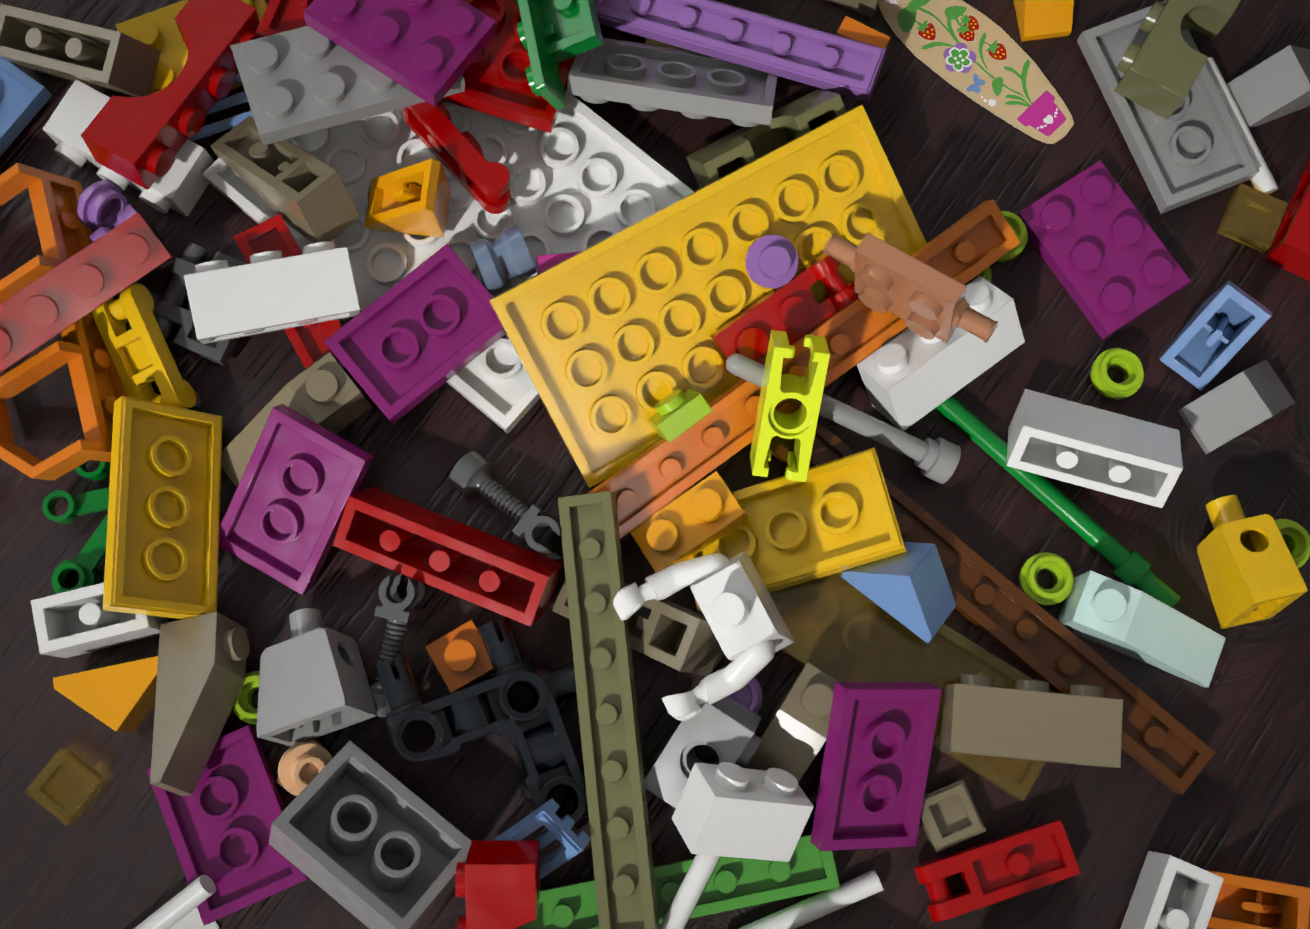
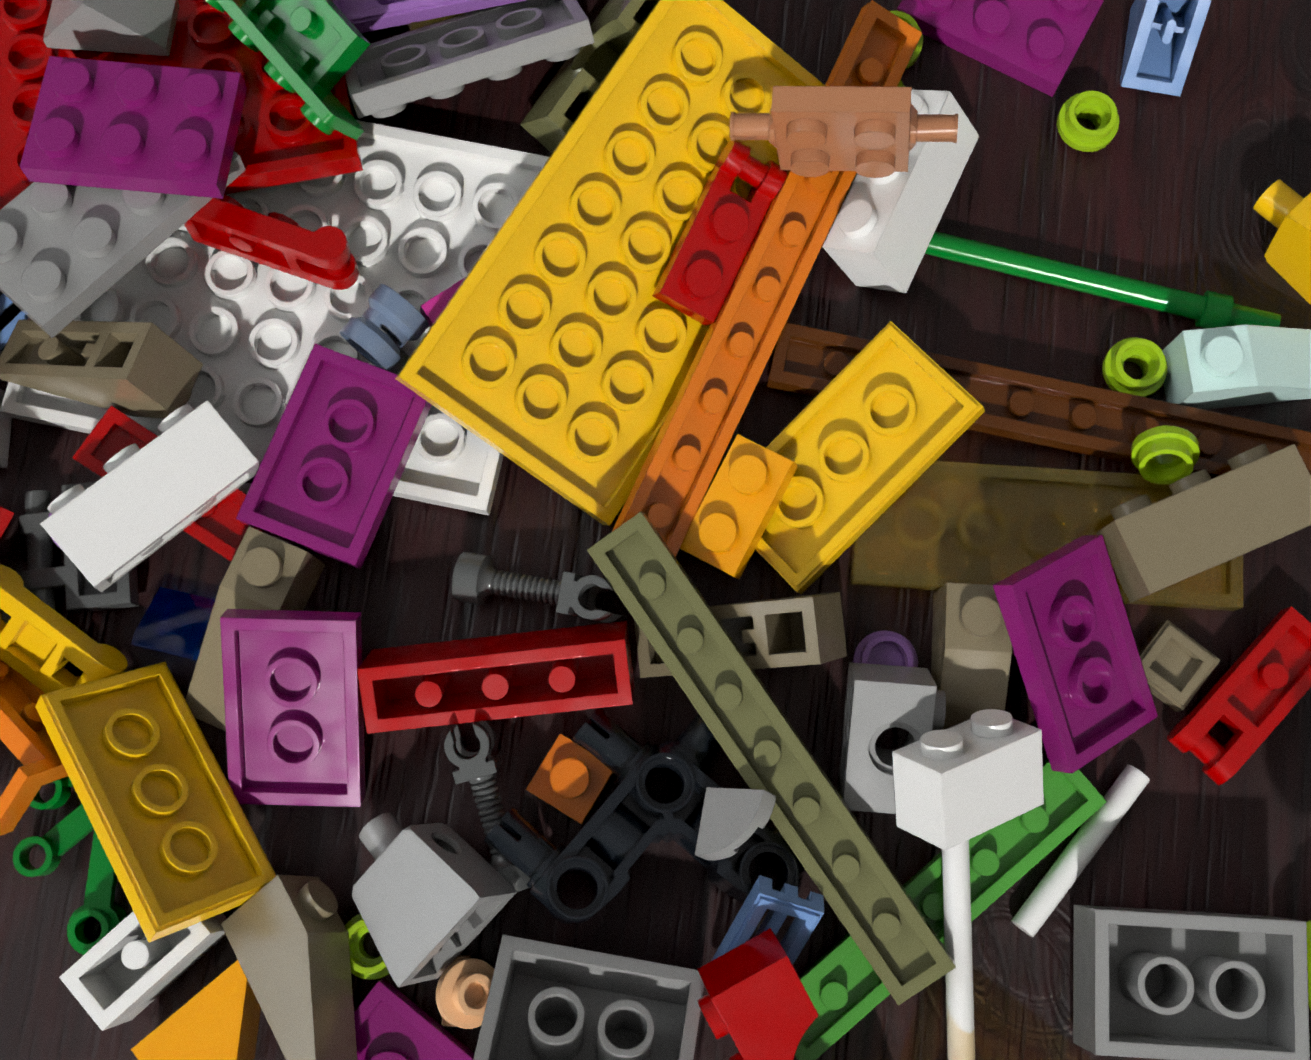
camera: 25 degrees left, 0 degrees up
(243, 393) = (174, 624): none -> clear blue slope
(410, 200) = (247, 318): light orange slope -> none
(553, 747) = (730, 820): none -> light grey tile
(678, 413) = (665, 394): lime plate -> none
(736, 611) = (845, 566): white torso -> none
(771, 261) = (677, 181): medium lavender plate -> none
(797, 425) = (757, 308): neon yellow piece -> none
(908, 588) = (1004, 450): medium blue slope -> none
(935, 457) = (954, 303): light grey piece -> none
(1026, 655) = (1165, 454): none -> lime plate
(1094, 448) = (1112, 206): white brick -> none
(1236, 406) = (1224, 95): light grey slope -> none

